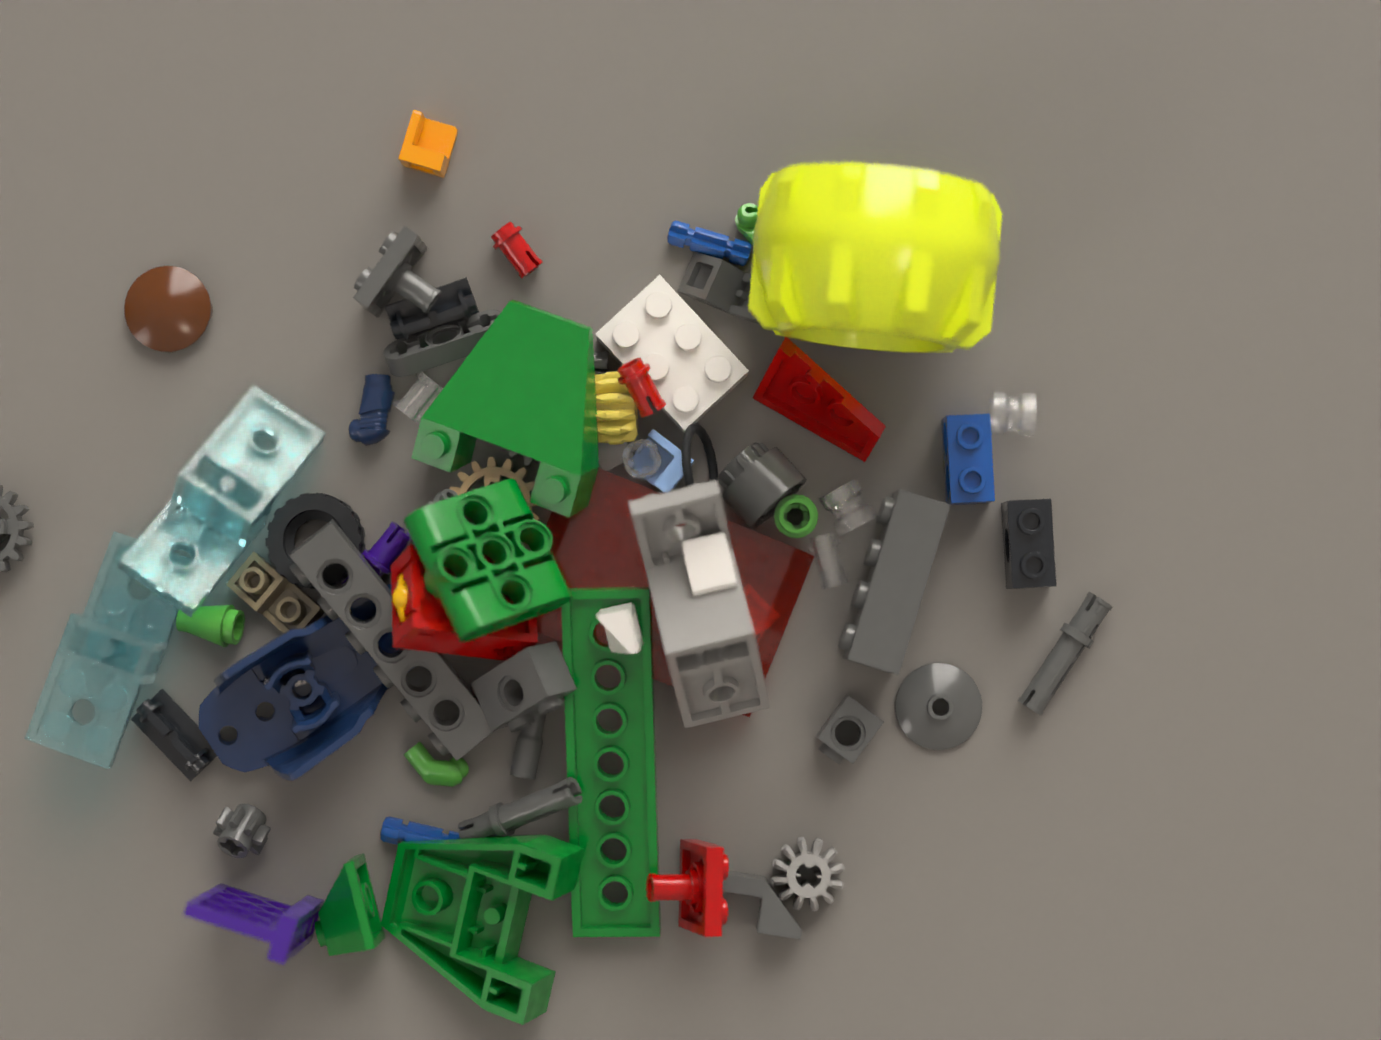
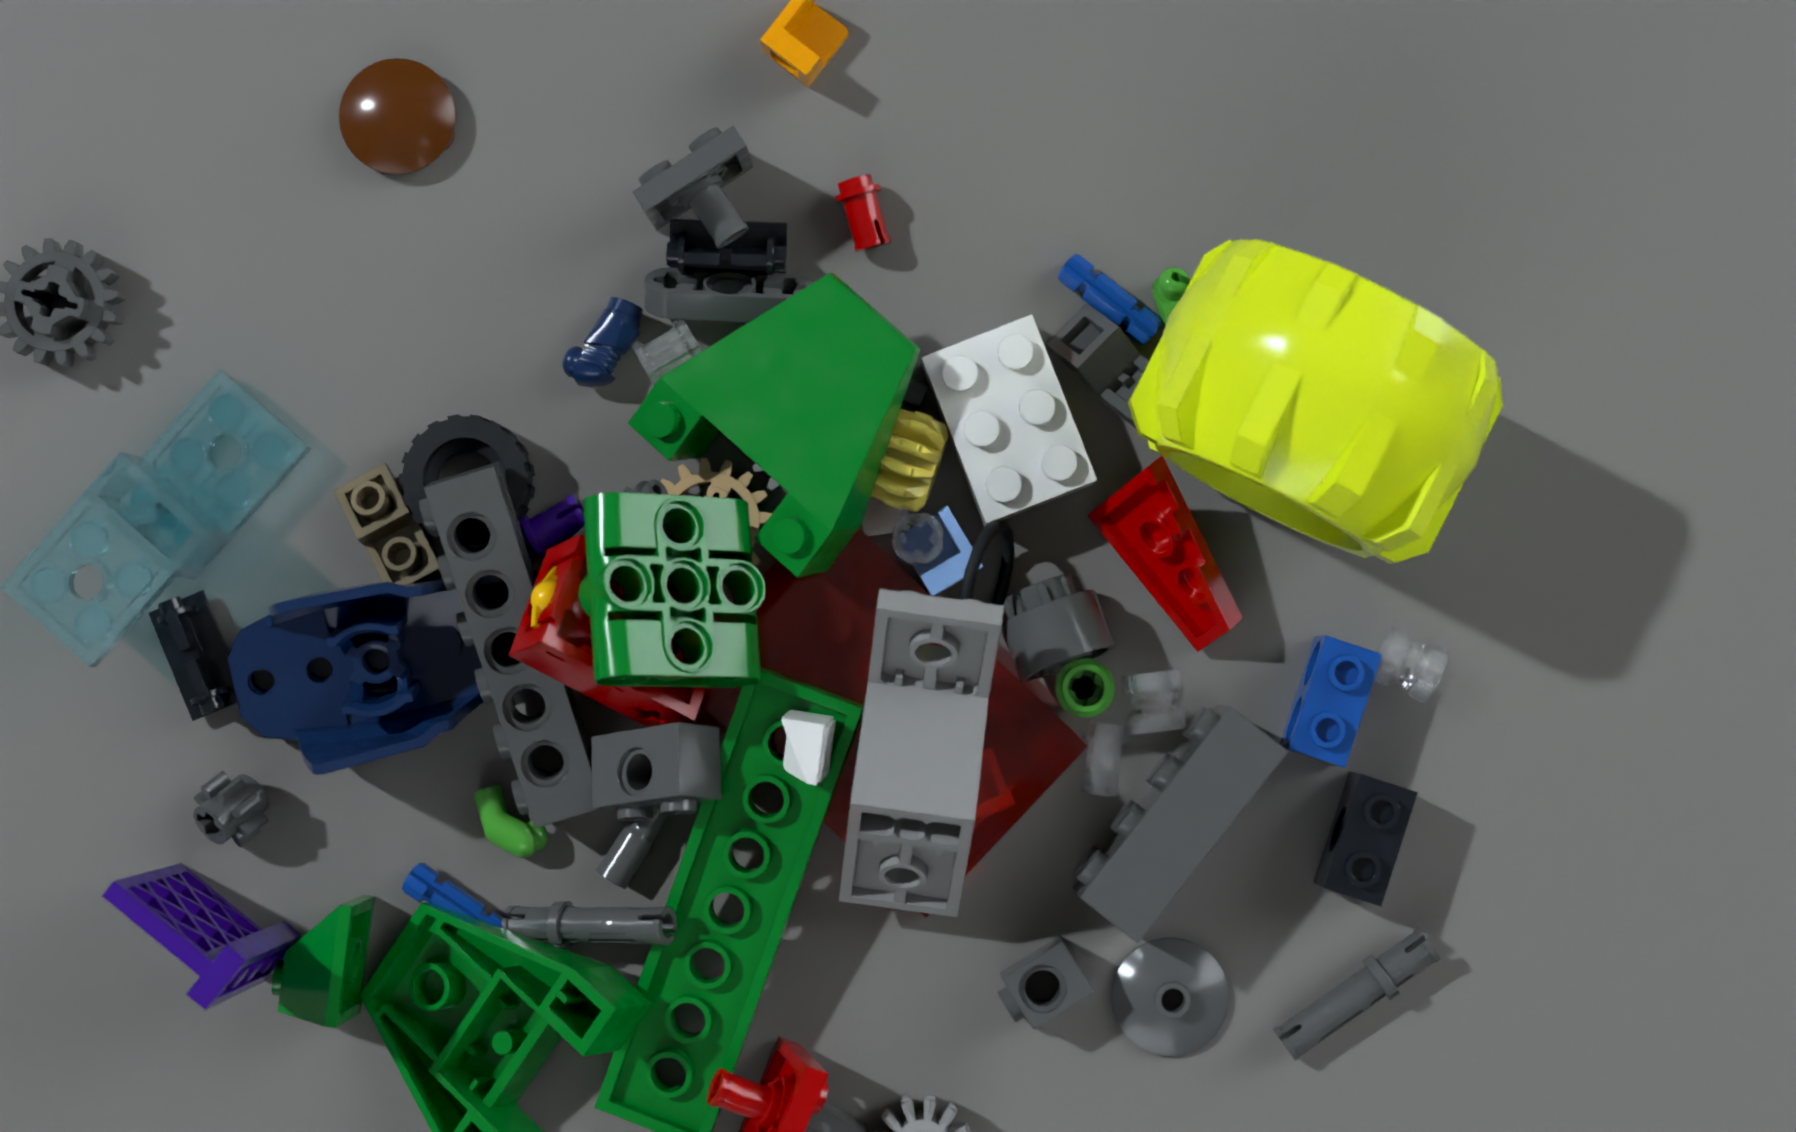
camera: 25 degrees right, 0 degrees up
(214, 623) = (300, 534): bright green cone -> none
(221, 500) = (367, 384): clear light blue bracket -> none
(640, 384) = (952, 444): red pin -> none
(709, 564) = (951, 708): white slope -> none

